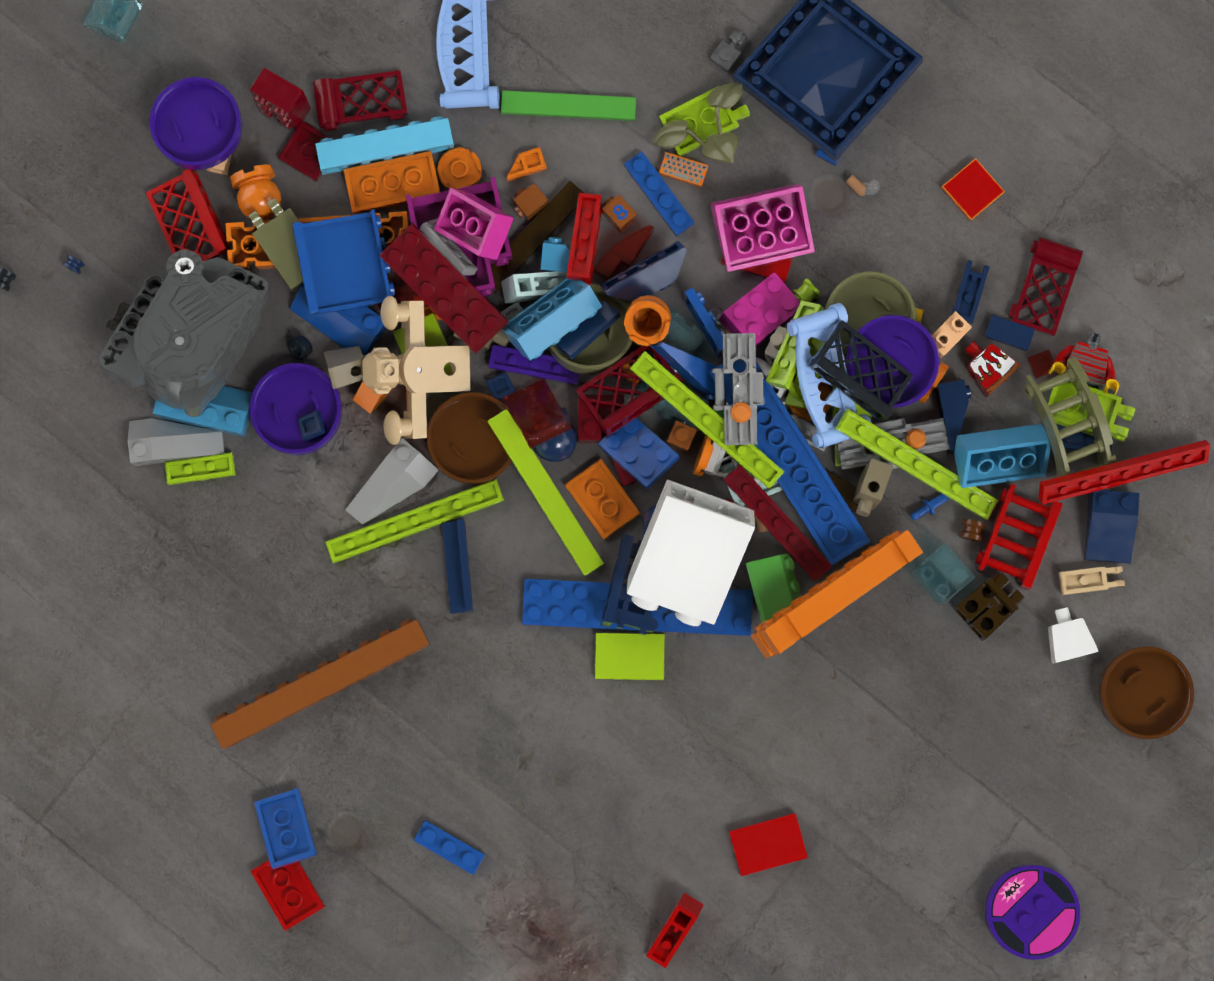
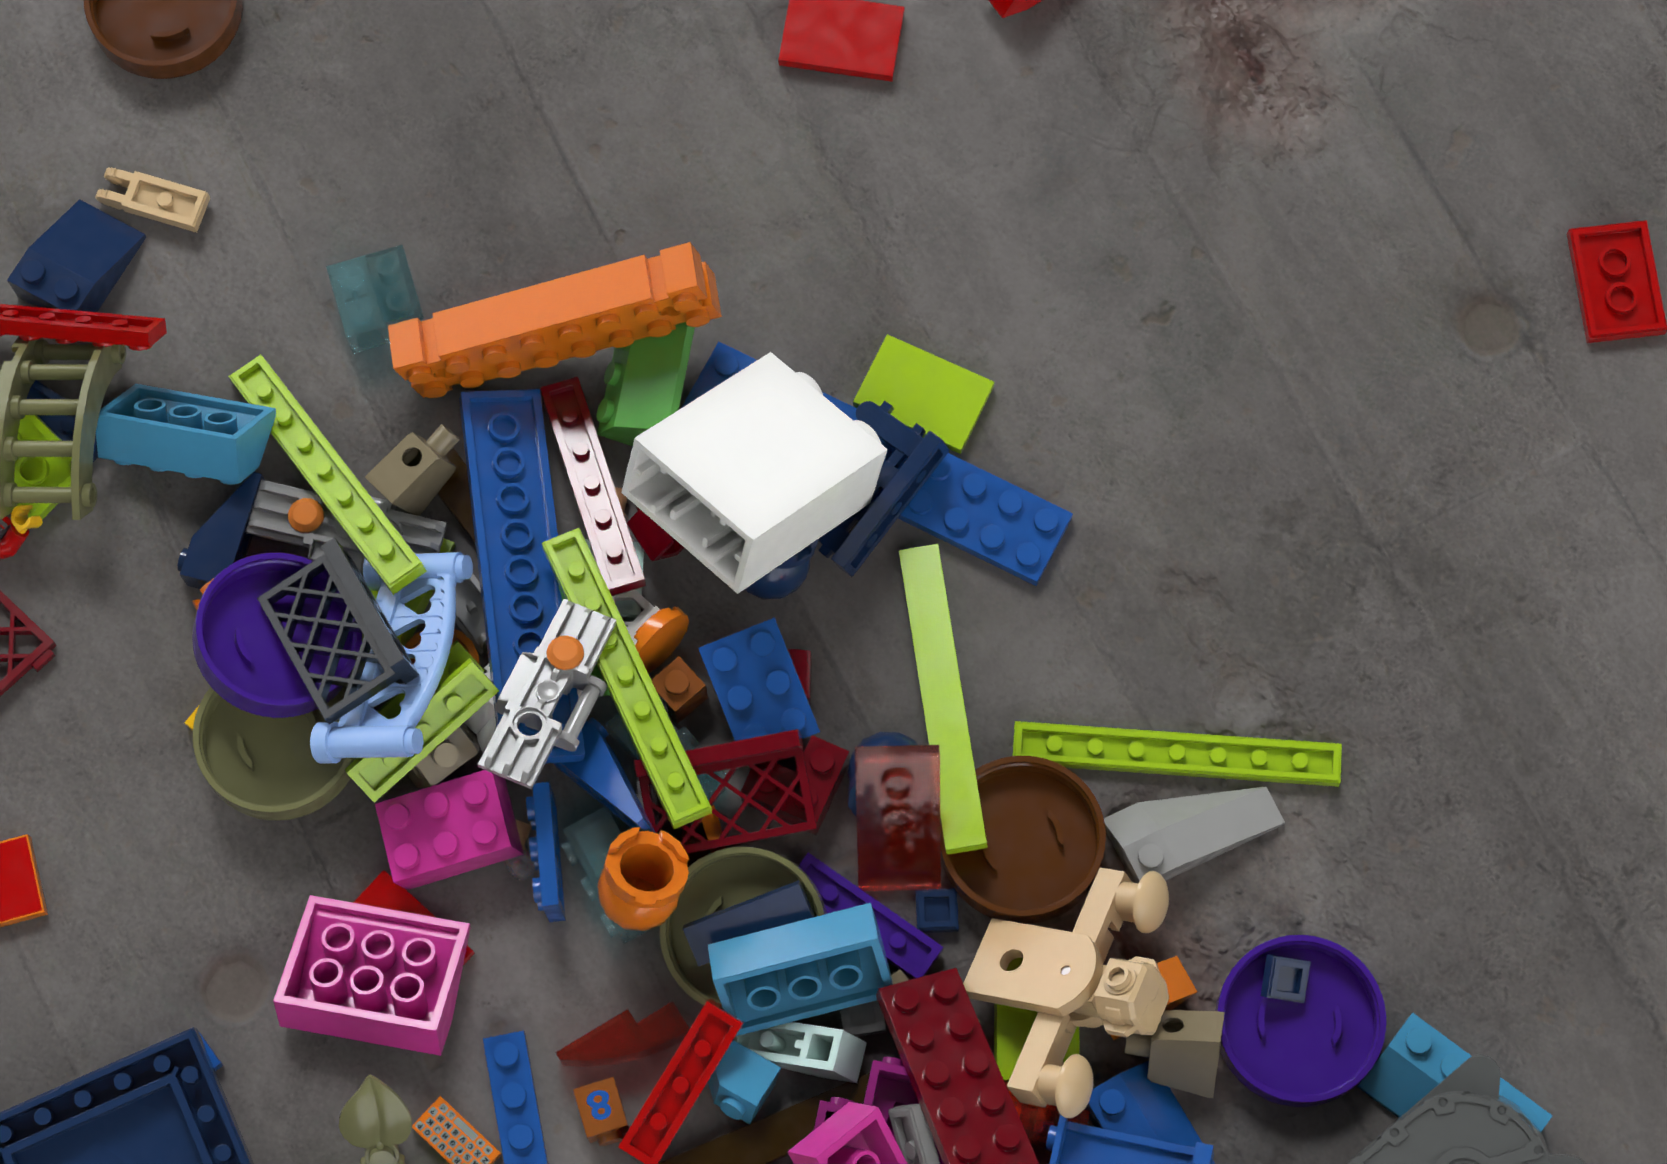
camera: 155 degrees left, 10 degrees down
(165, 441) = (1552, 1067): light grey wedge -> none
(200, 468) = (1504, 999): lime tile -> none
(285, 828) = (1586, 364): blue plate -> none
(300, 347) = (1249, 1127): black tile -> none
(320, 684) = (1441, 560): dark orange brick -> none
(449, 847) = (1335, 235): blue plate -> none
(457, 567) = (1137, 648): dark blue fence -> none
(602, 499) = (853, 654): orange tile -> none
(648, 275) = (607, 976): dark blue wedge -> none
(806, 292) = (359, 833): lime brick -> none
(863, 189) = (174, 968): arm -> none
(929, 507) = (343, 413): blue piece -> none
(950, 333) = (161, 647): light nougat hips -> none
(970, 292) = (95, 715): dark blue hinge -> none
(972, 530) = (294, 347): reddish brown wheel -> none
(989, 367) = (129, 581): torso -> none
(996, 602) = (329, 223): dark brown hips -> none
(1009, 333) = (68, 626): dark blue tile -> none
(1041, 363) = (44, 555): clear red tile -> none
(1041, 533) = (218, 269): red fence -> none
(1069, 638) = (233, 126): white torso -> none

